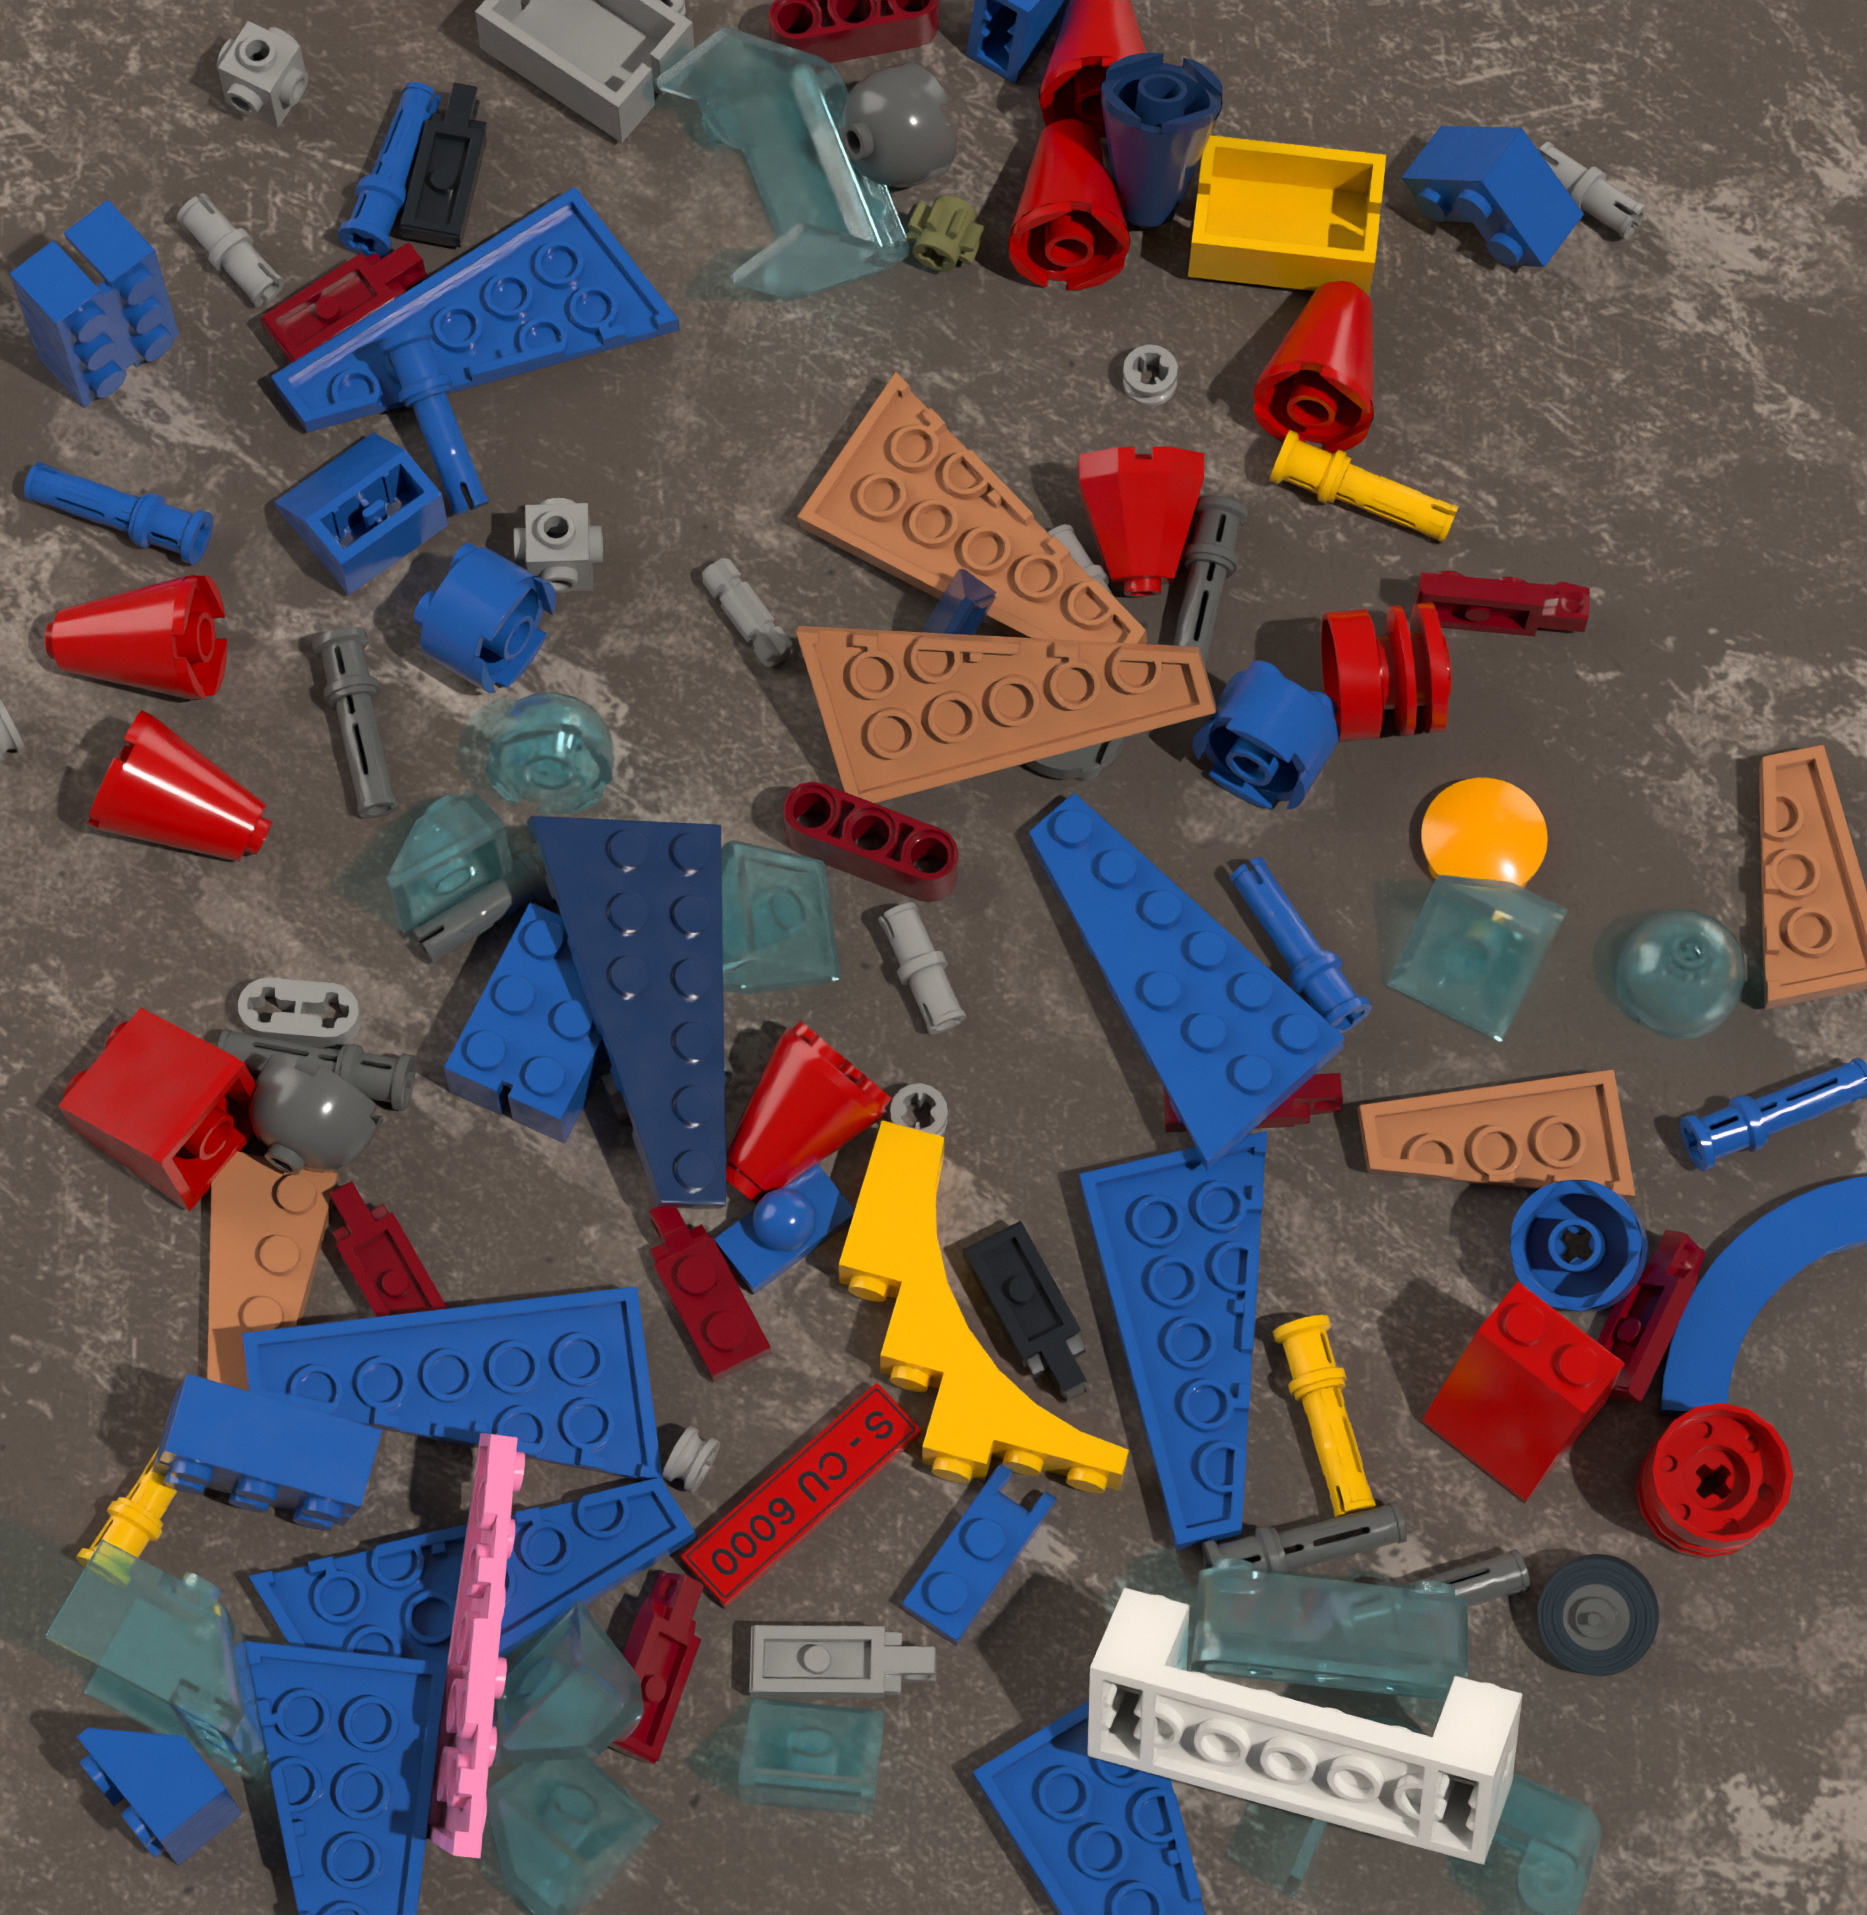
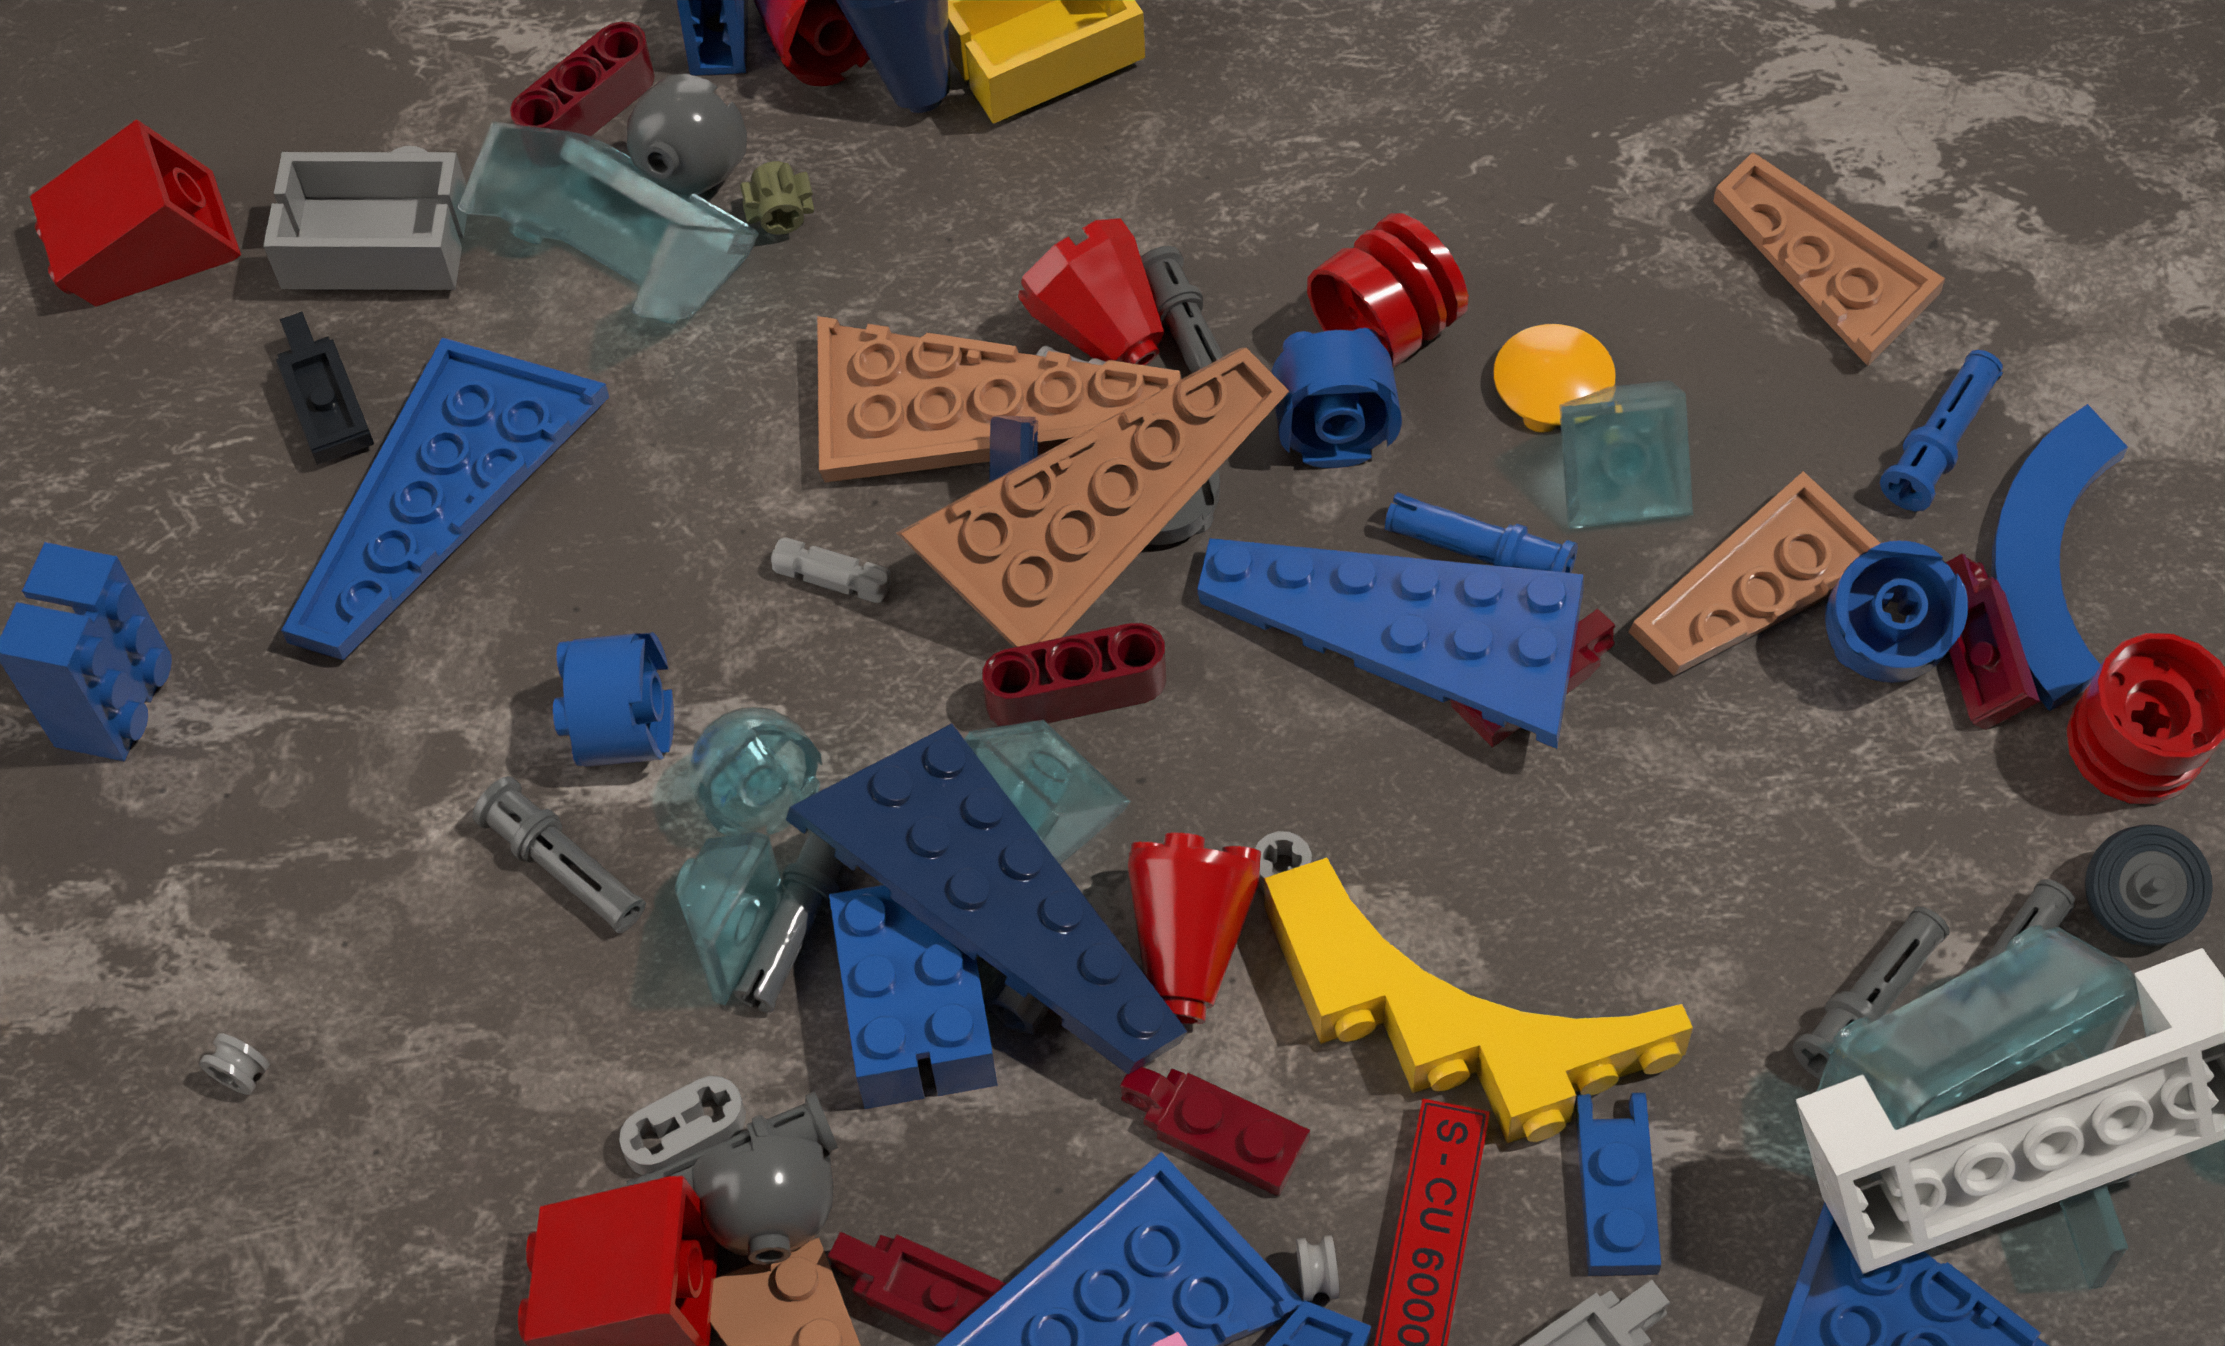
camera: 30 degrees left, 10 degrees down
(144, 518) = (246, 811): blue pin -> none
(146, 638) = (316, 902): red cone -> none
(177, 797) = (443, 1012): red cone -> none
(230, 249) = (173, 557): light grey pin -> none
(262, 73) = (104, 406): light grey brick -> none
(341, 300) = (299, 539): dark red hinge -> none
(365, 511) = (443, 683): blue slope -> none
(383, 191) = (276, 437): blue pin -> none
(427, 391) = (432, 557): blue pin -> none
(559, 544) = (635, 601): light grey brick -> none
(785, 1228) = (1243, 1027): blue tile -> none
(922, 968) = (1194, 747): light grey pin -> none
(1029, 1307) = (1500, 954): black hinge -> none
(1069, 212) = (870, 125): red cone -> none
(1146, 393) = (1016, 223): light grey bush -> none
(1184, 1297) = (1625, 871): blue wing -> none
(1318, 1386) = (1779, 859): yellow pin -> none
(1322, 372) = (1162, 123): red cone -> none
(1335, 478) = (1228, 190): yellow pin -> none
(1503, 603) = (1437, 197): dark red hinge -> none
(1523, 1392) = (1952, 745): red slope -> none
(1681, 973) = (1786, 376): clear light blue cylinder -> none

